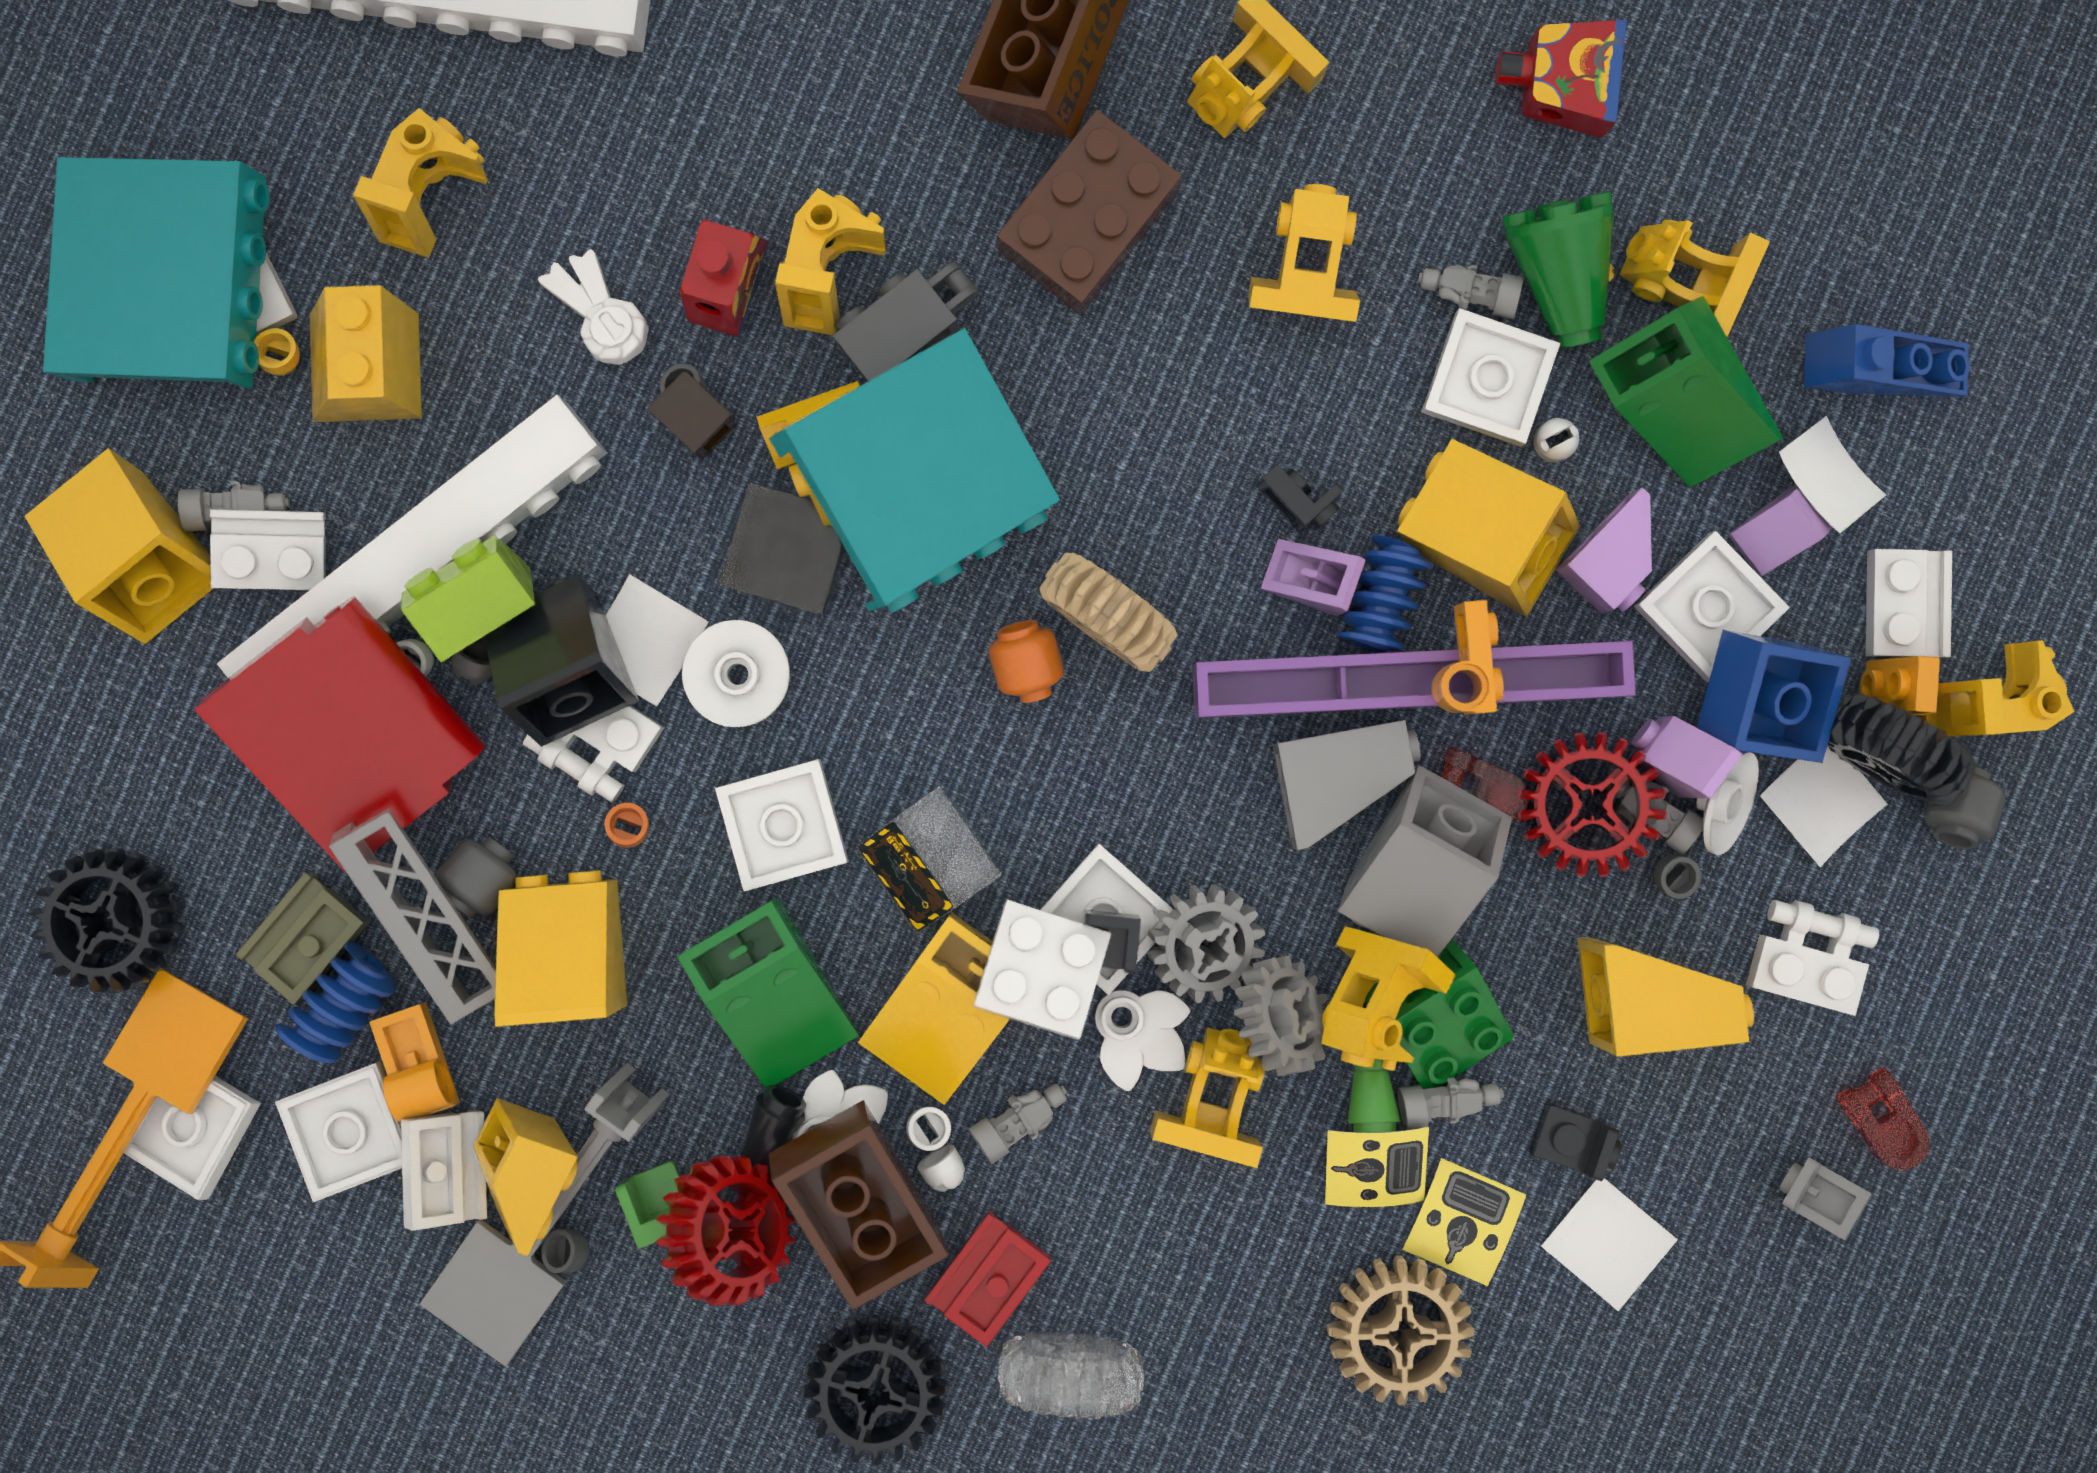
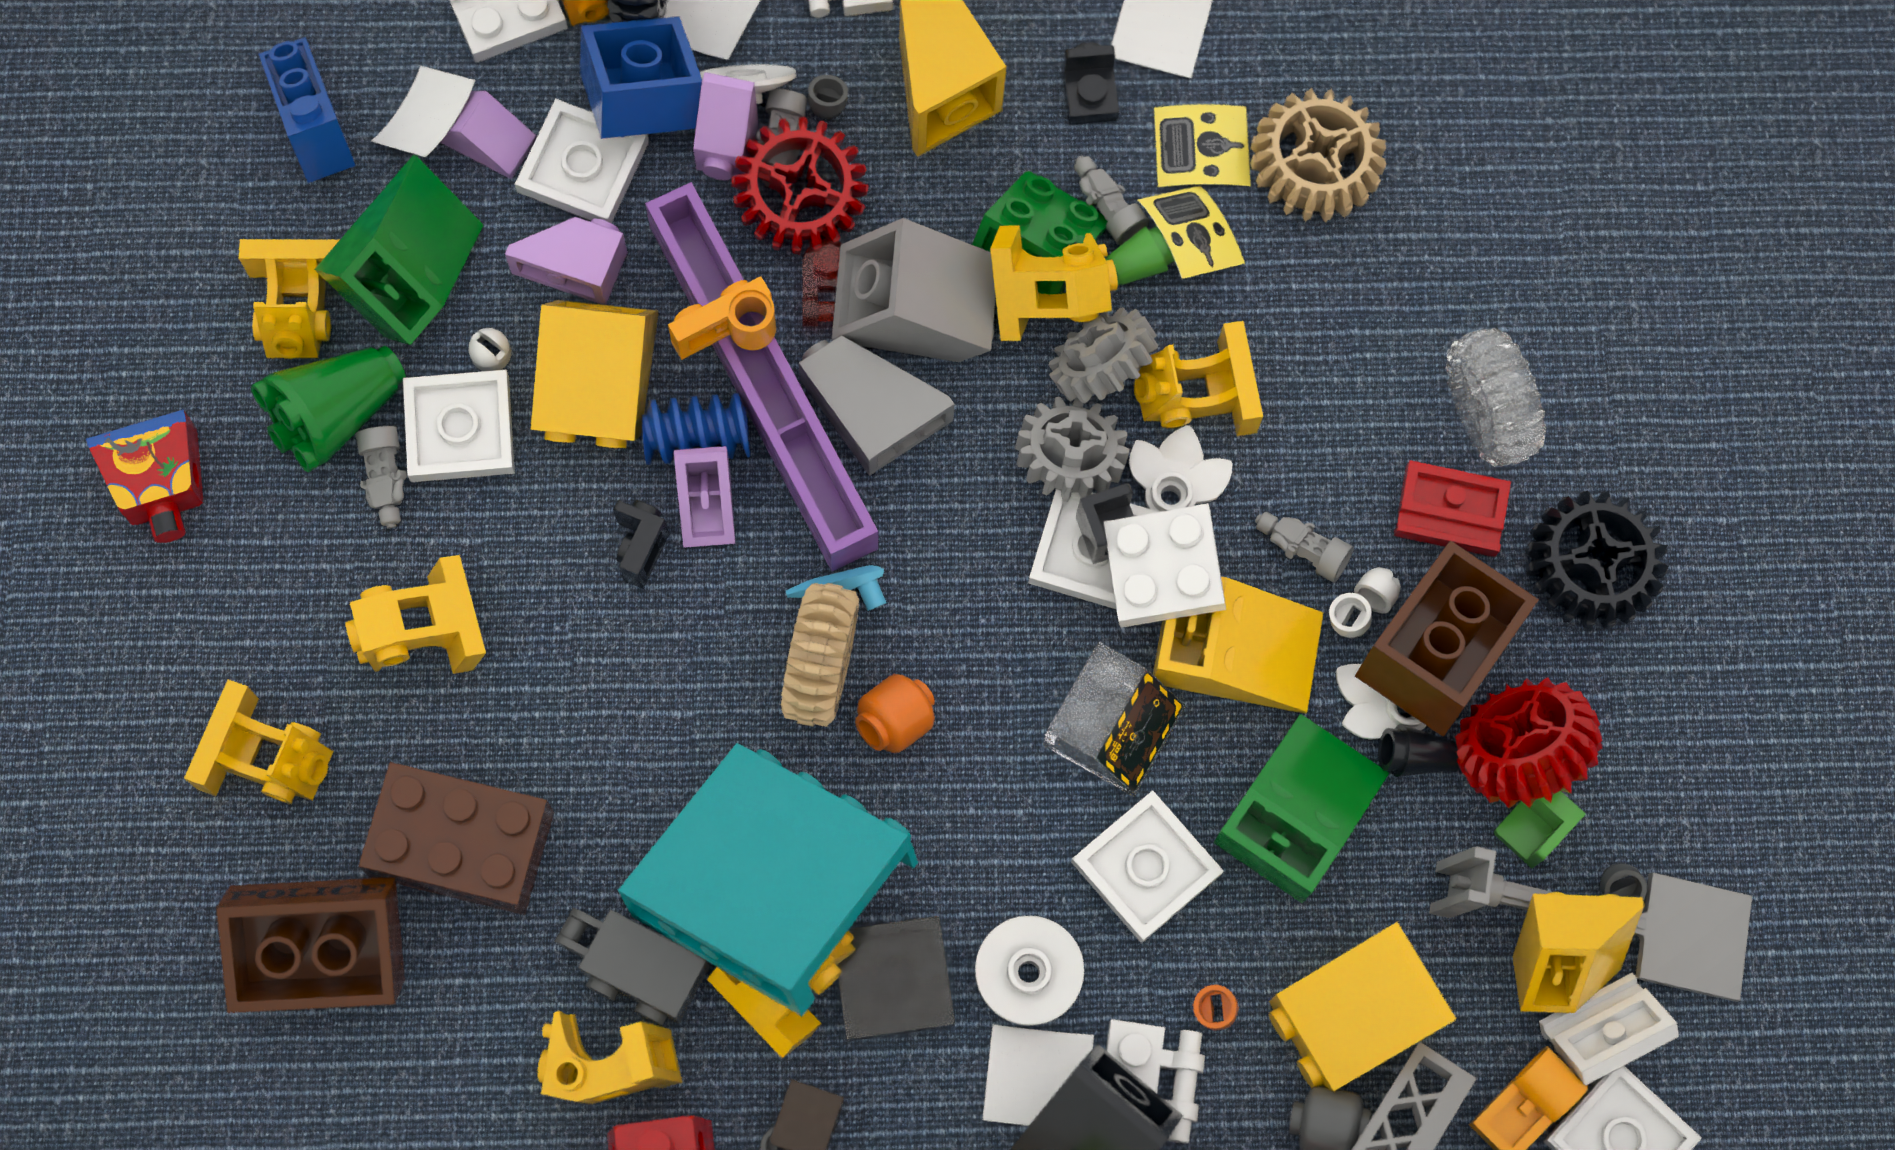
camera: 110 degrees left, 15 degrees down
(1176, 671) = (862, 578): none -> medium azure bar

